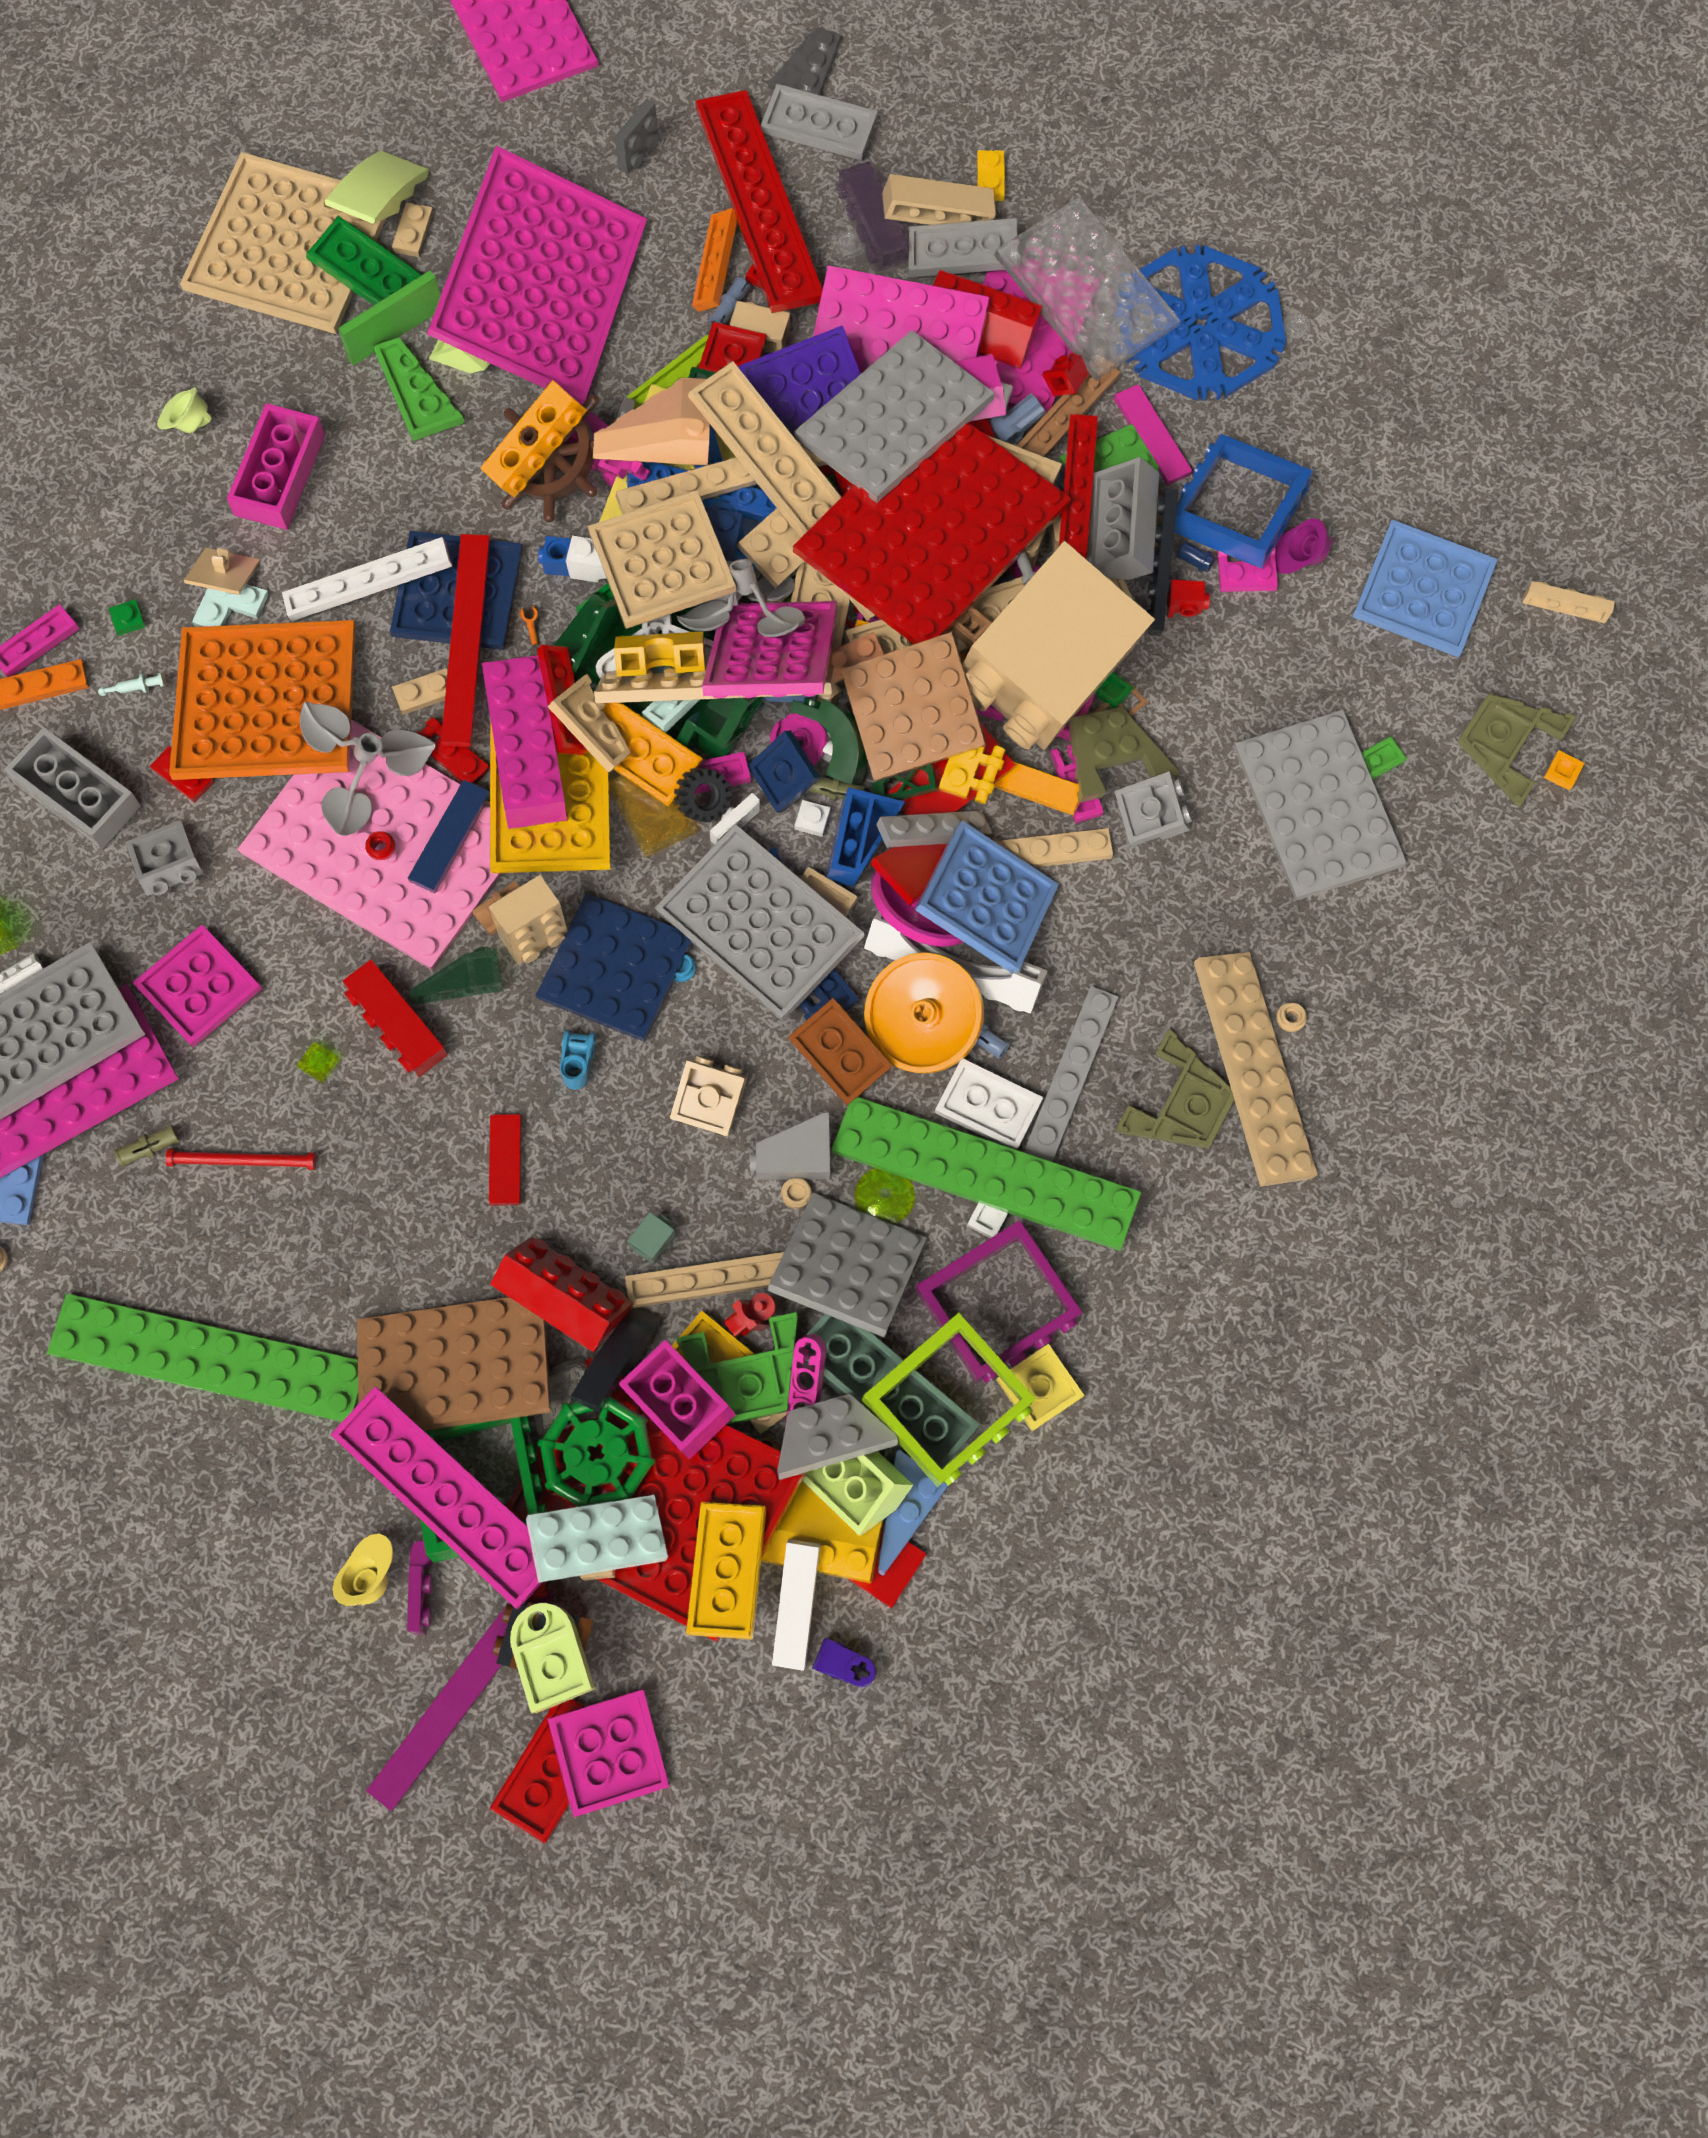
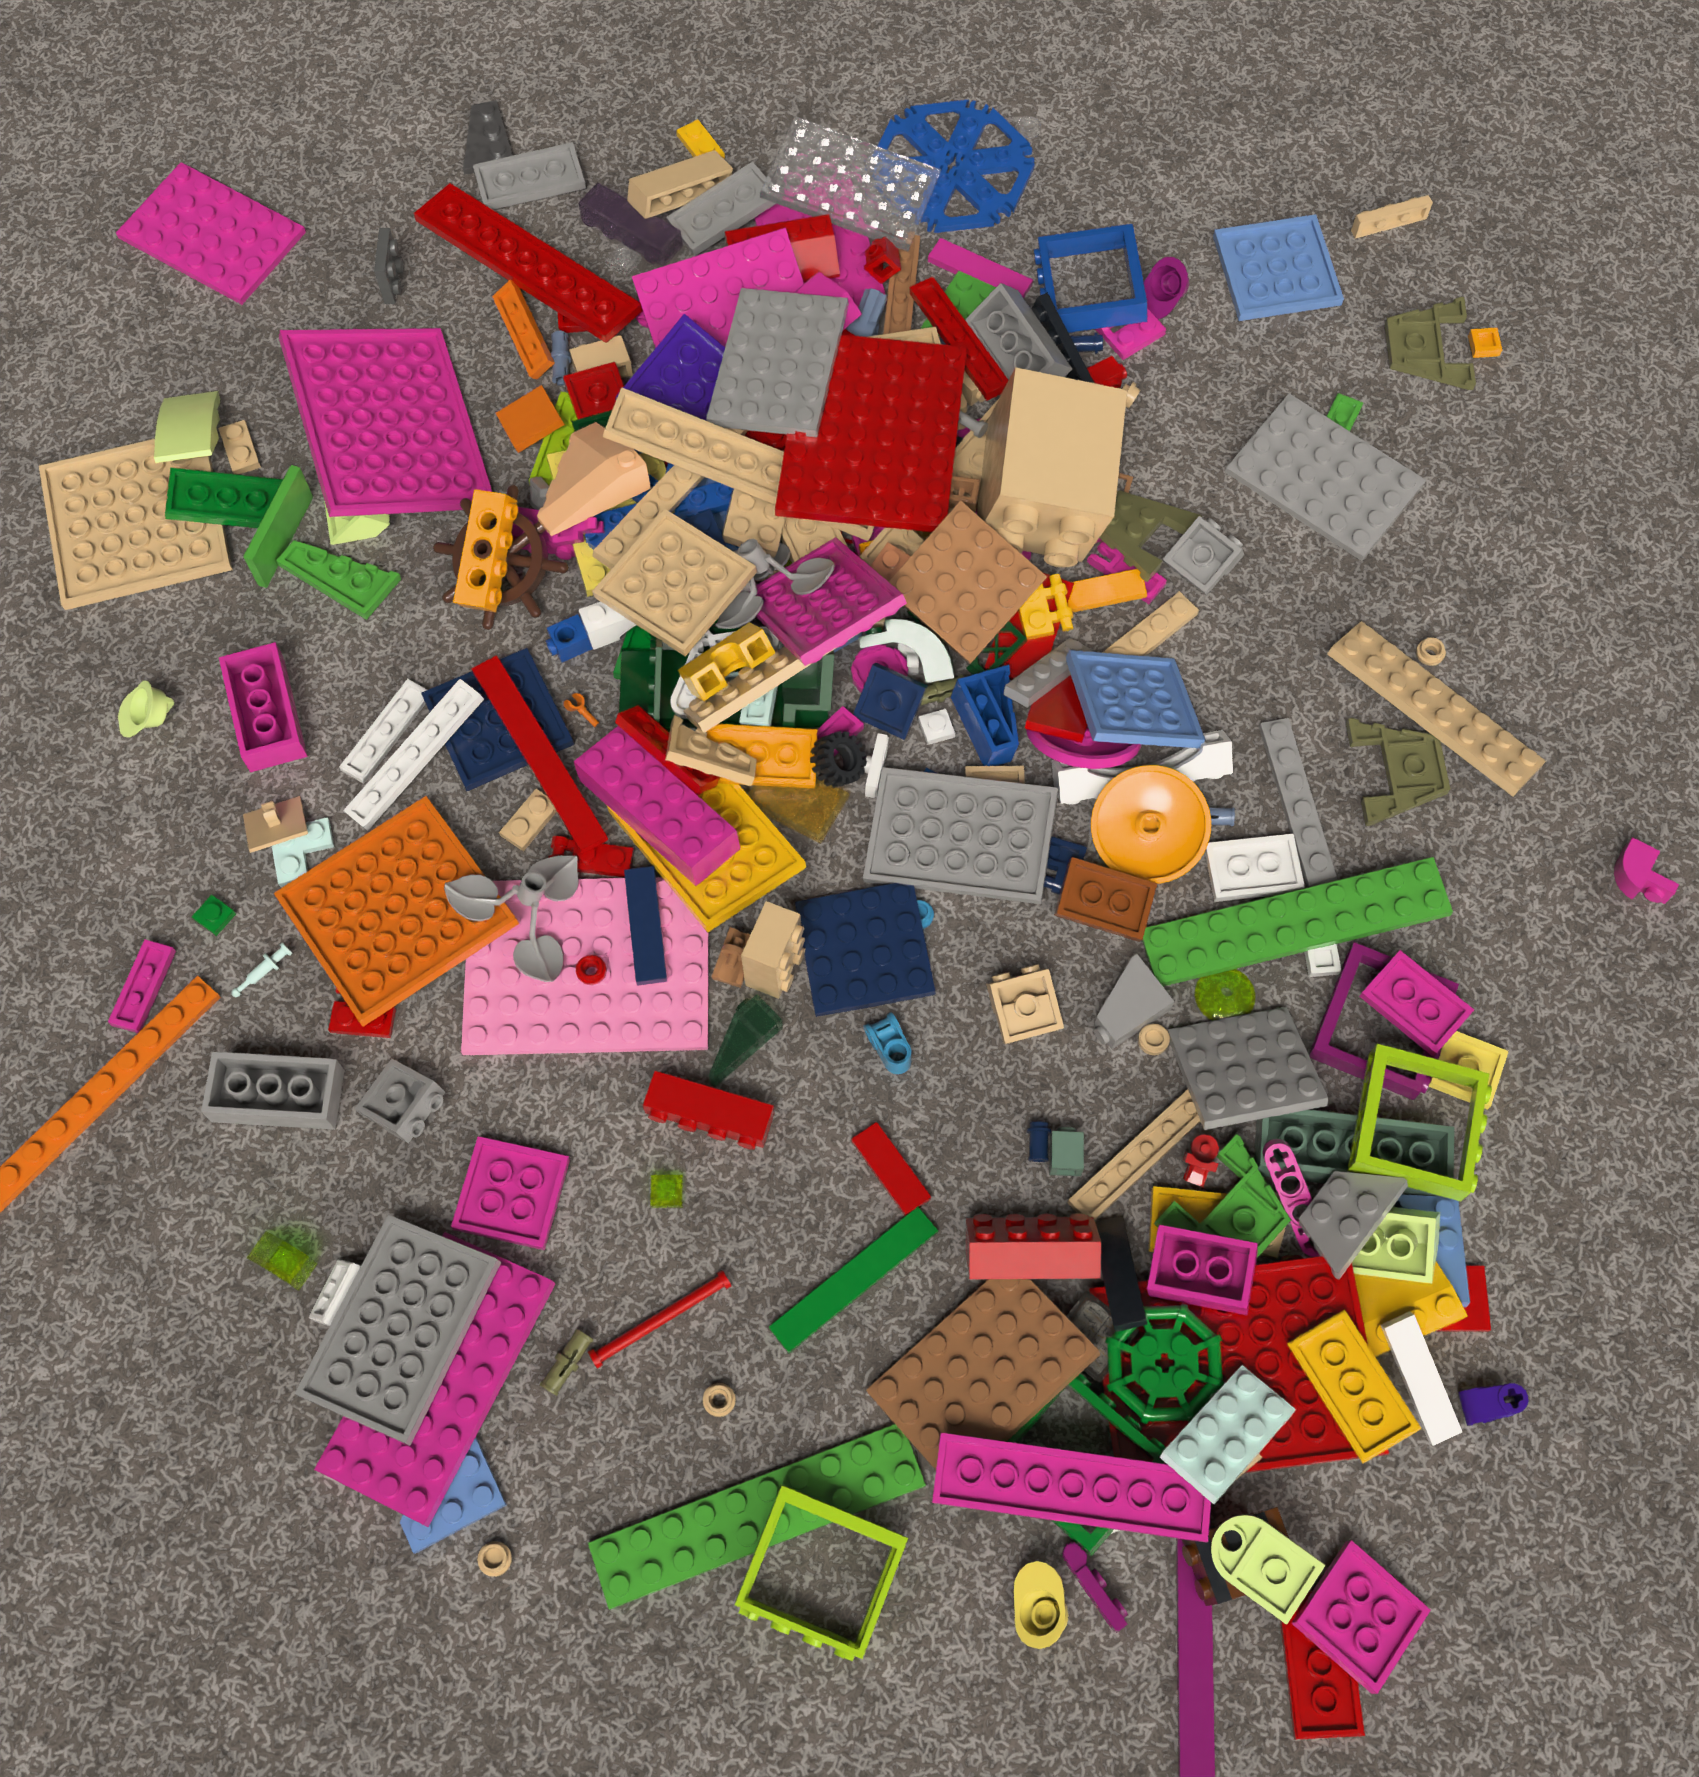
camera: 30 degrees left, 5 degrees down
(167, 1452) = (812, 1633): none -> lime window
(237, 1243) = (711, 1392): none -> tan plate
(361, 546) = (384, 732): none -> white tile
(411, 1227) = (853, 1280): none -> green tile
(637, 1213) = (1038, 1141): none -> dark blue pin
(663, 343) = (530, 418): none -> orange tile
(1028, 1303) = (1416, 1003): none -> dark pink plate
(1197, 625) = (1132, 392): none -> tan plate
(1317, 1319) = (1635, 875): none -> dark pink brick

